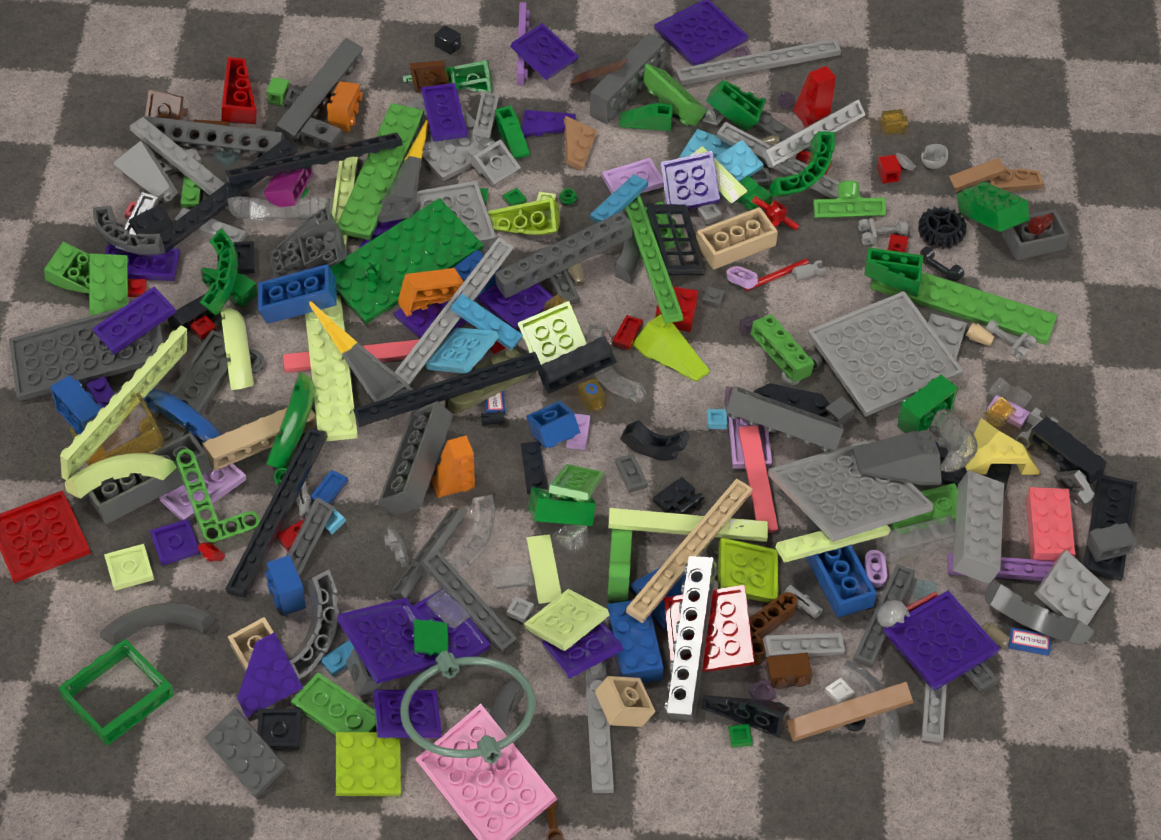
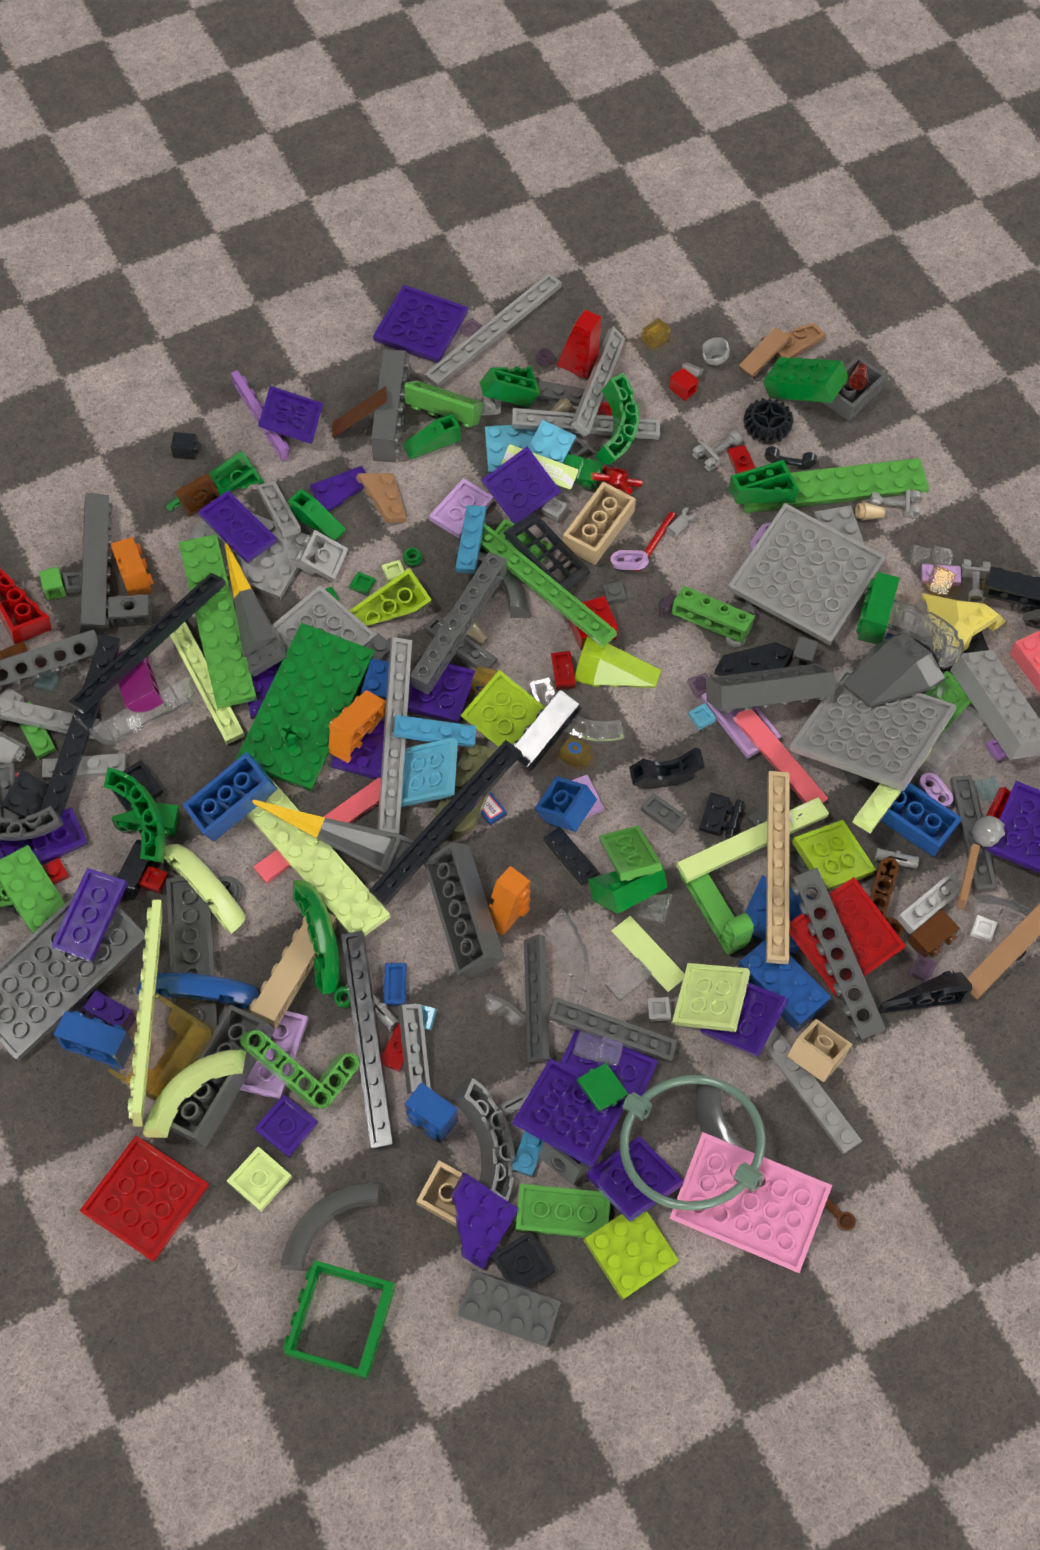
camera: 30 degrees left, 10 degrees up
(211, 552) = (330, 1117): red plate -> none
(311, 245) = (206, 741): dark grey wedge -> none
(493, 418) = (500, 825): black pin -> none
(740, 735) = (930, 1021): green tile -> none
(849, 203) = (673, 437): bright green plate -> none
(850, 640) = (968, 875): none -> medium nougat tile

